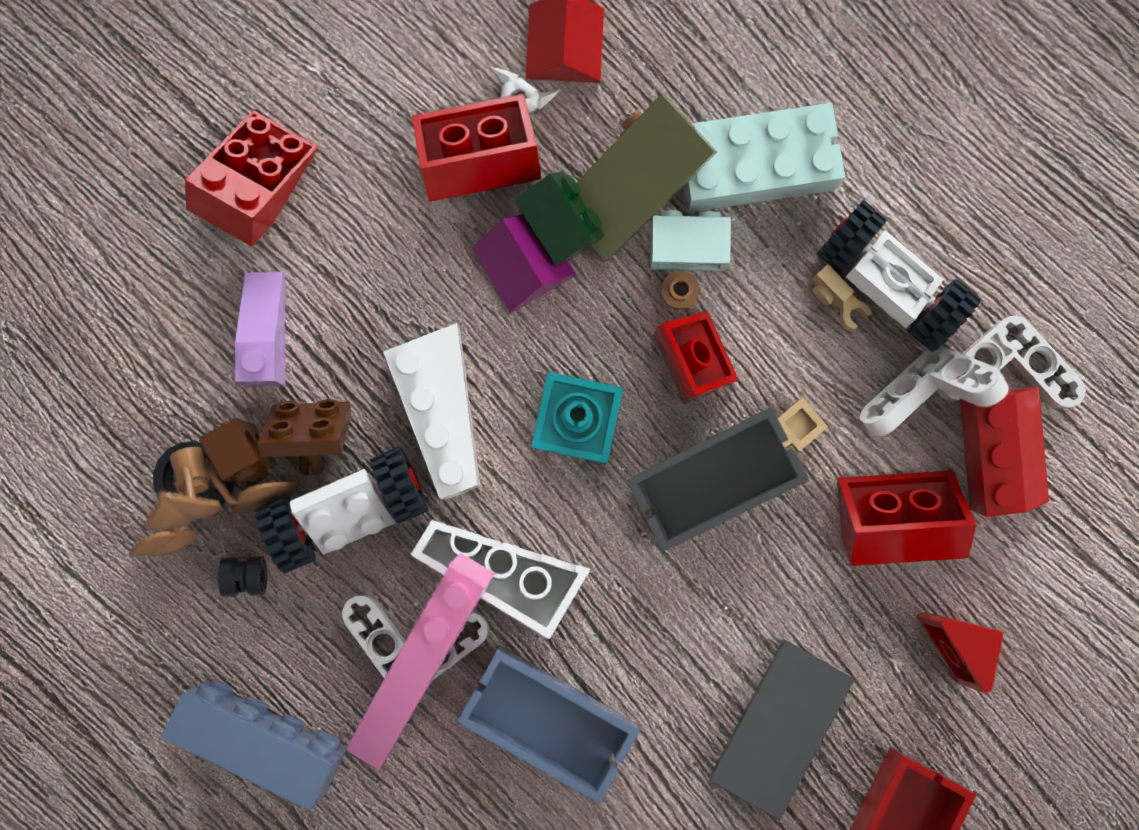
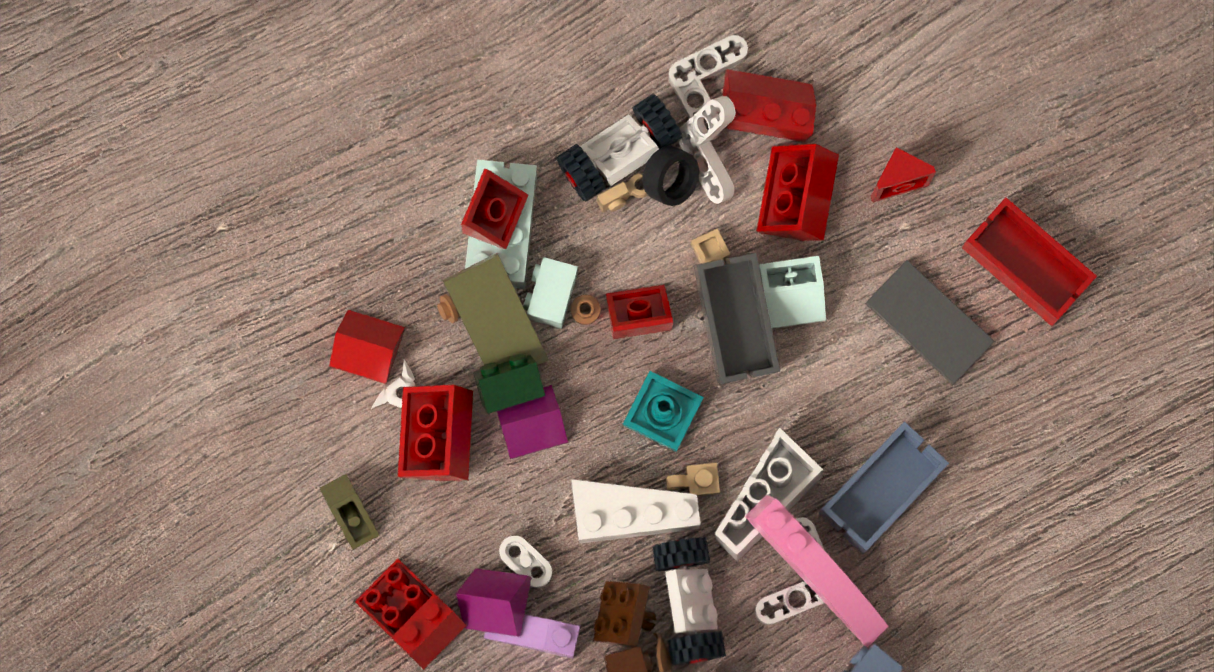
camera: 75 degrees left, 5 degrees down
(287, 270) = (494, 601): none -> magenta slope
(344, 297) = (526, 561): none -> white plate
(356, 69) = (349, 511): none -> olive slope
(503, 485) = (700, 480): none -> tan plate
(772, 130) = (493, 210): none -> red slope
(773, 543) = (794, 291): none -> light aqua slope
(879, 326) = (656, 169): none -> black tyre

